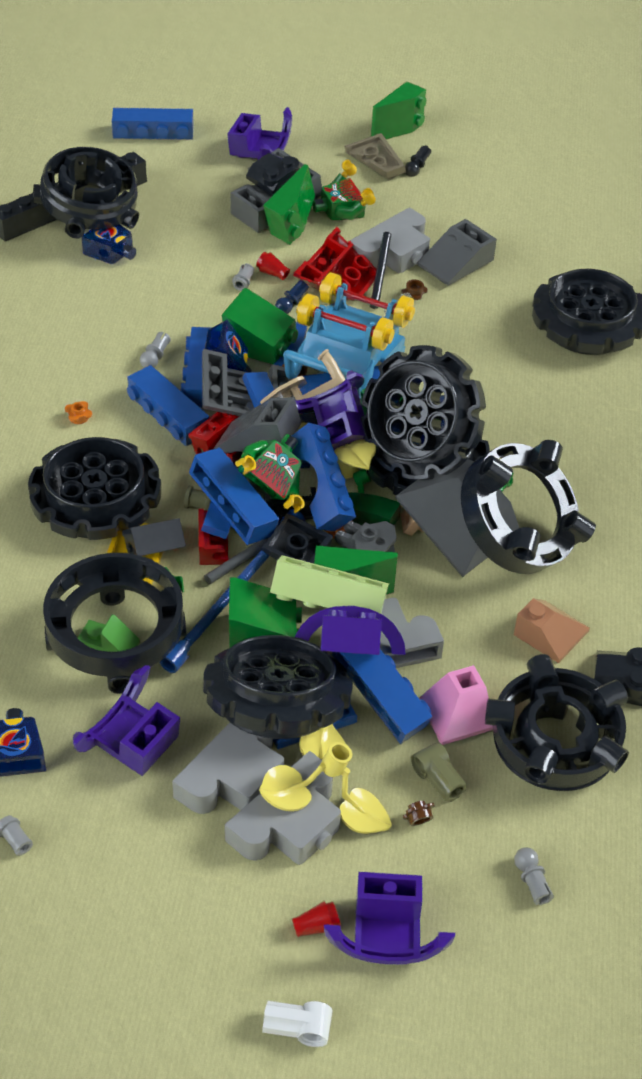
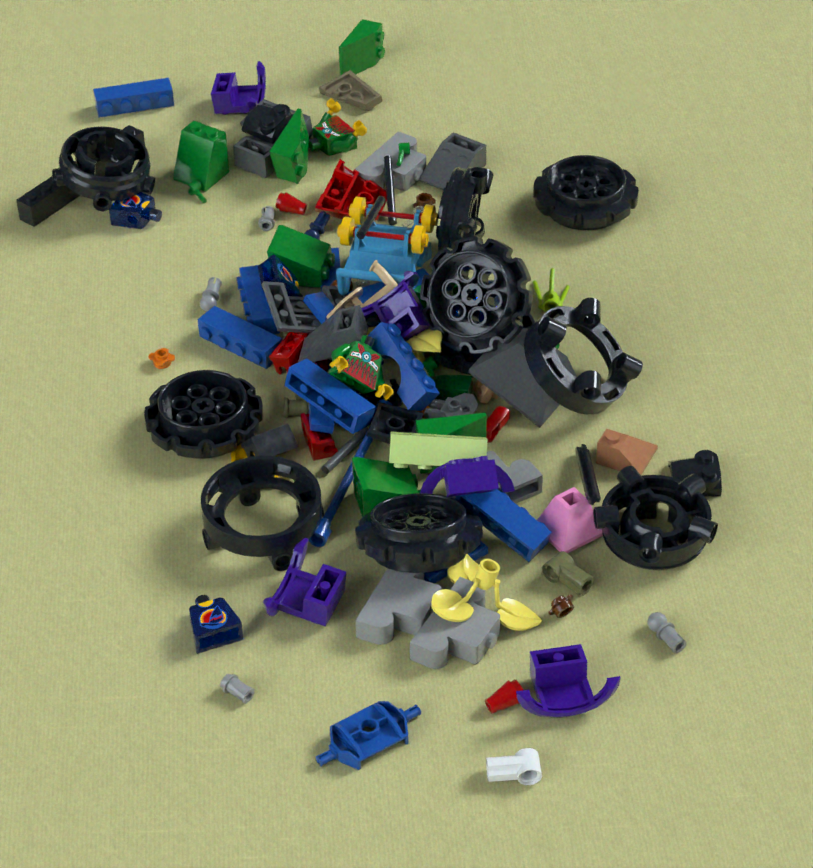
camera: 10 degrees left, 5 degrees down
(110, 637) = (263, 525): bright green slope -> none
(122, 946) = (353, 745): none -> blue plate
(180, 231) = (195, 188): none -> green hand
(195, 198) = (201, 155): none -> green slope
(338, 299) = (370, 217): none -> black bar
(407, 228) = (404, 149): none -> green hand
(412, 562) = (496, 422): none -> red bar
(417, 161) = (390, 89): black axle -> none
(445, 304) = (461, 205): none -> black piece
(495, 652) = (587, 474): none -> black axle
(516, 429) = (550, 298): none -> lime plant

